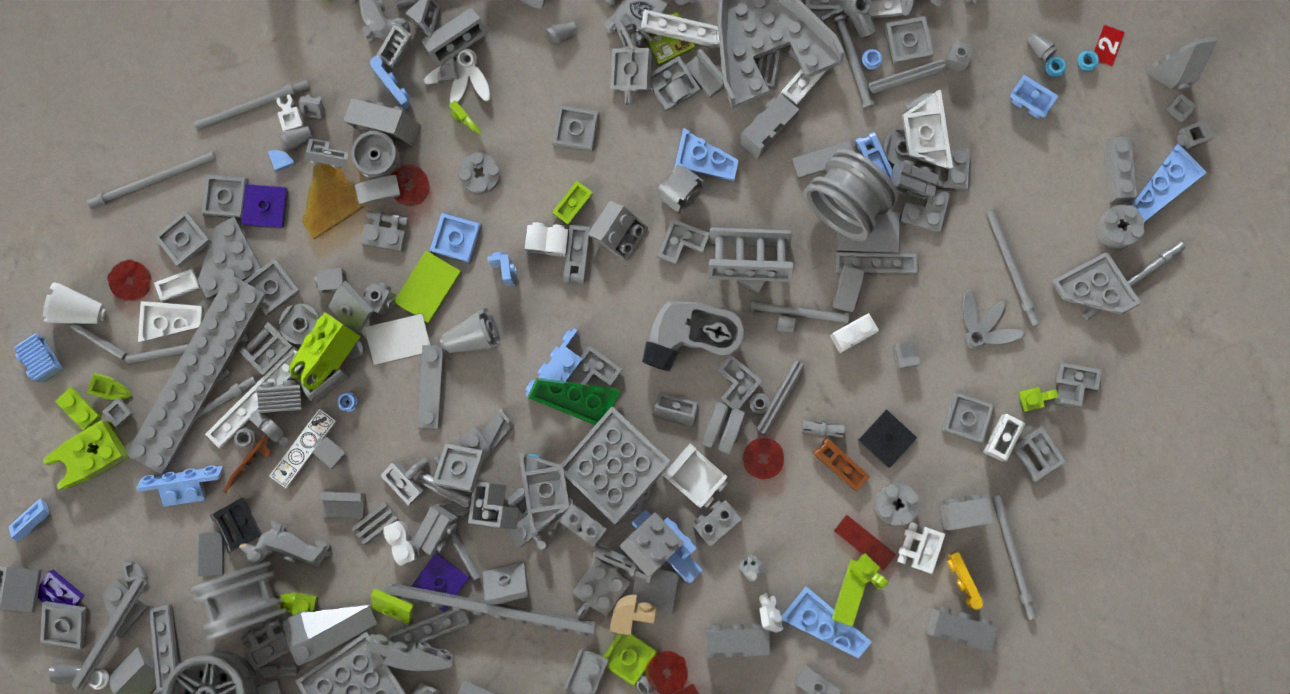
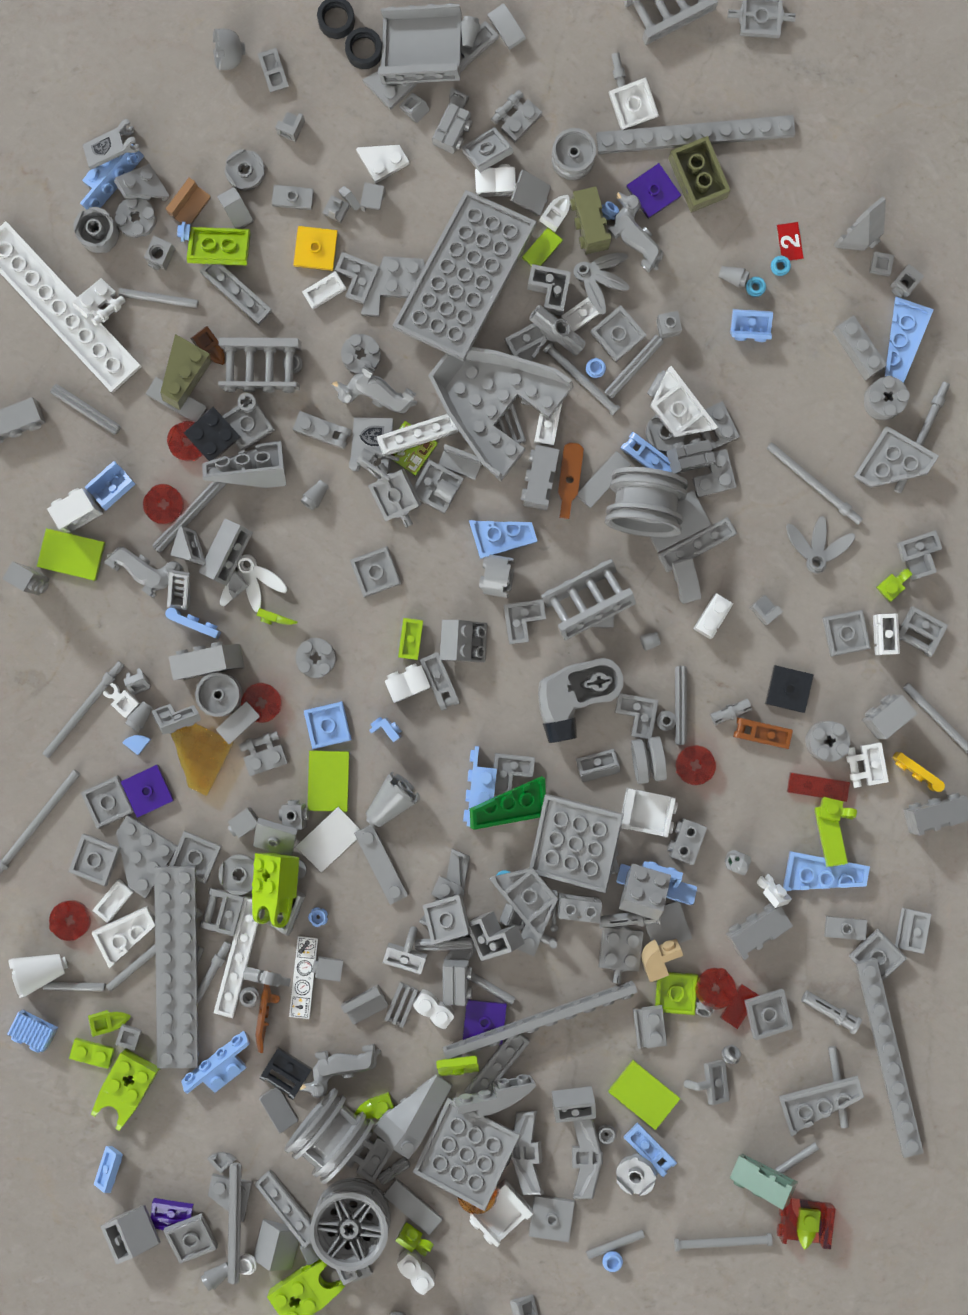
camera: 35 degrees left, 5 degrees up
(279, 397) = (259, 946): light grey brick -> none
(505, 584) = (541, 993): light grey plate -> none
(799, 312) = (656, 623): light grey bar -> none
(800, 133) = (570, 468): none -> dark orange piece

